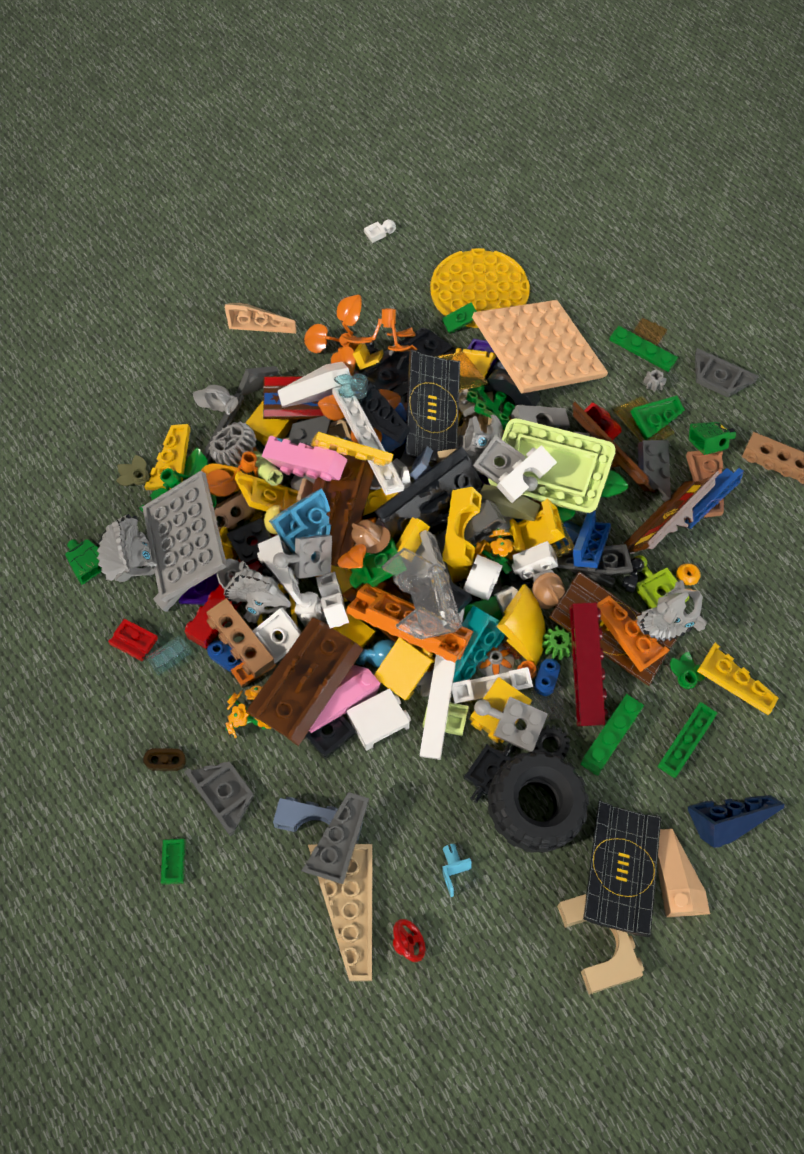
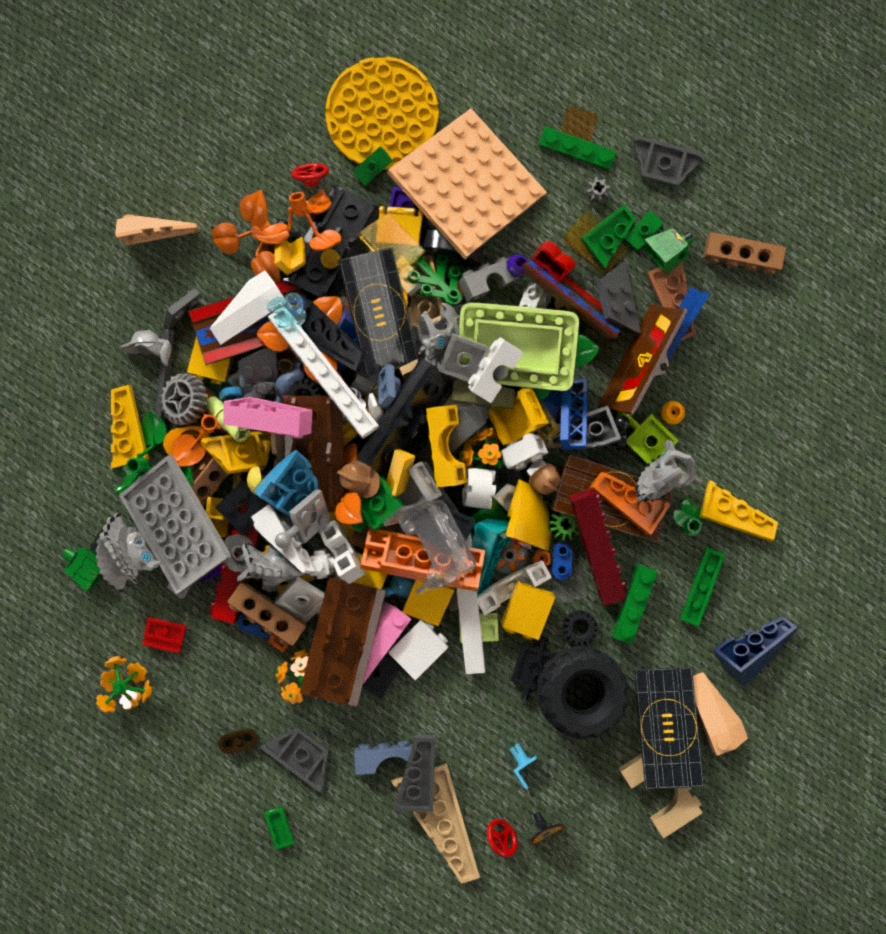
camera: 20 degrees left, 25 degrees up
(69, 666) = (113, 682): none -> light orange plant
(130, 472) = (90, 453): olive plate -> none
(168, 655) = (202, 640): clear light blue brick -> none
(350, 448) = (313, 405): yellow wing -> none
(376, 231) = (244, 67): white plate -> none
(401, 366) = (330, 258): none -> yellow plate
(404, 312) = (308, 173): none -> red piece
(459, 946) = (545, 831): none -> shield
(506, 726) = (540, 615): light grey plate -> none
(566, 414) = (512, 265): none -> dark purple plate
(682, 424) = (644, 229): none -> green plate

